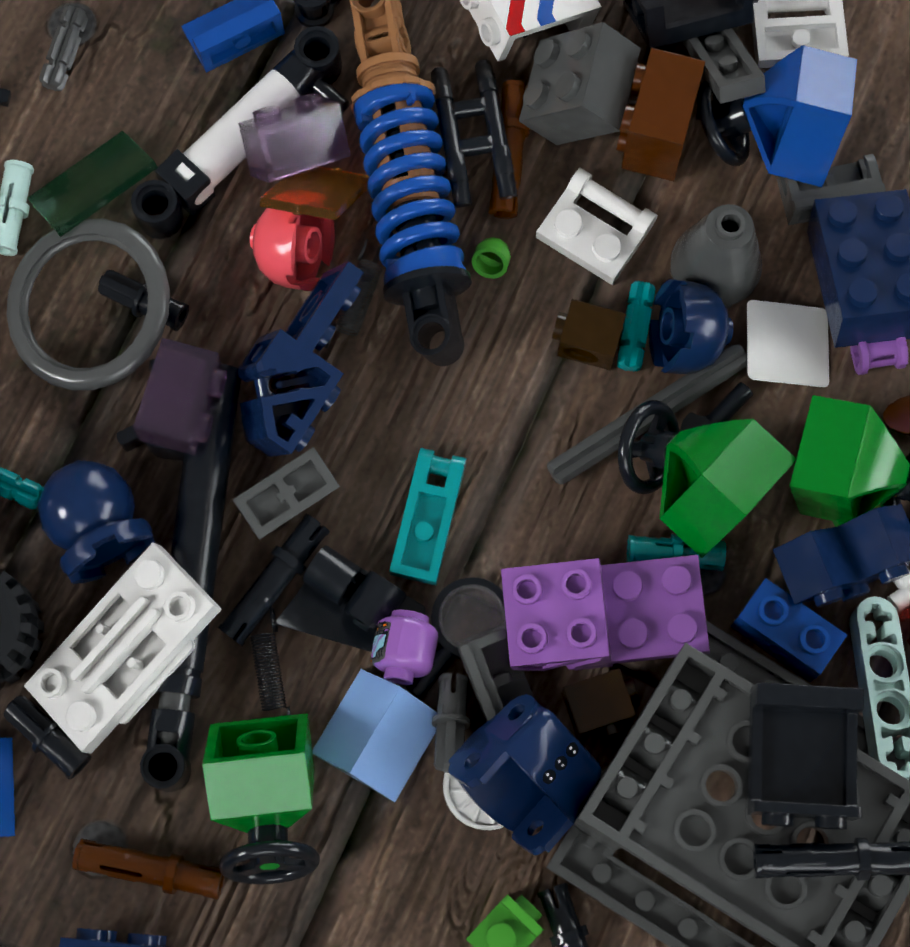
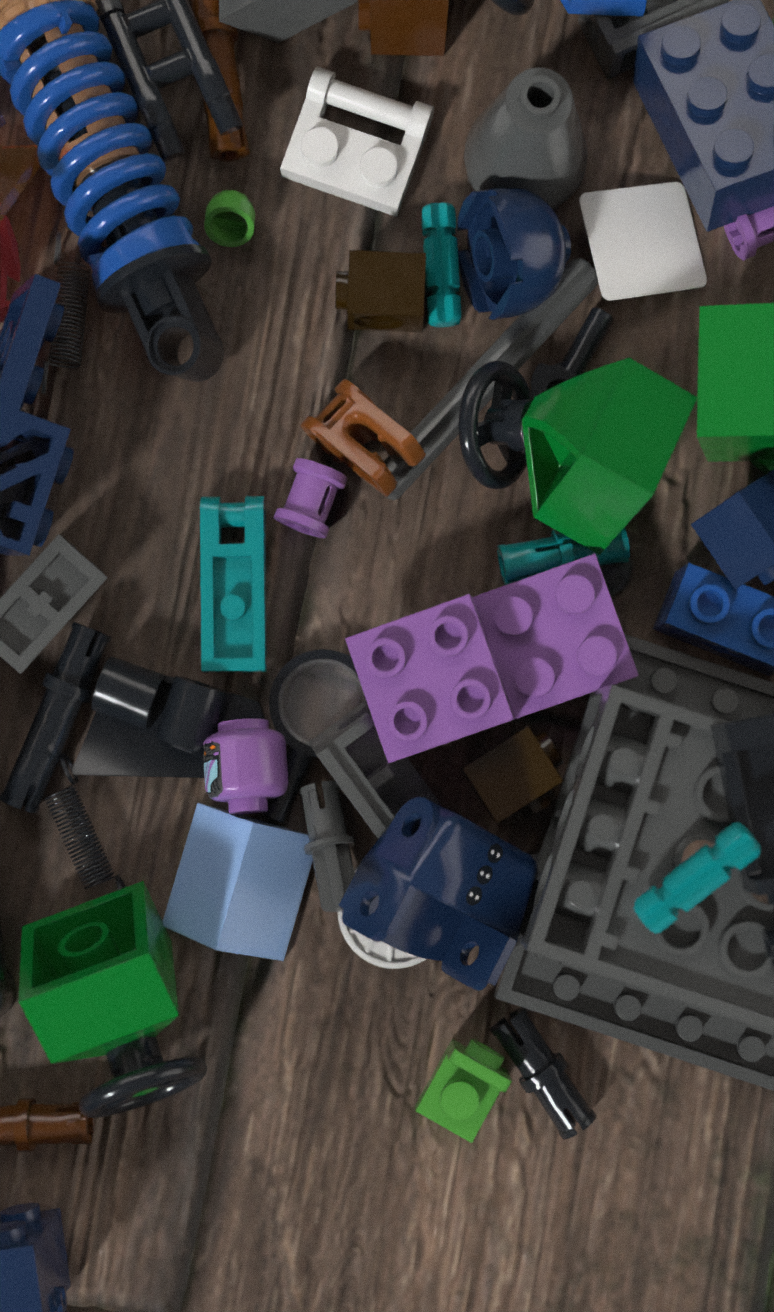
camera: 20 degrees left, 10 degrees up
(500, 467) = (310, 498): none -> medium lavender bush
(544, 421) = (350, 424): none -> dark orange piece
(713, 791) = (697, 877): none -> teal axle

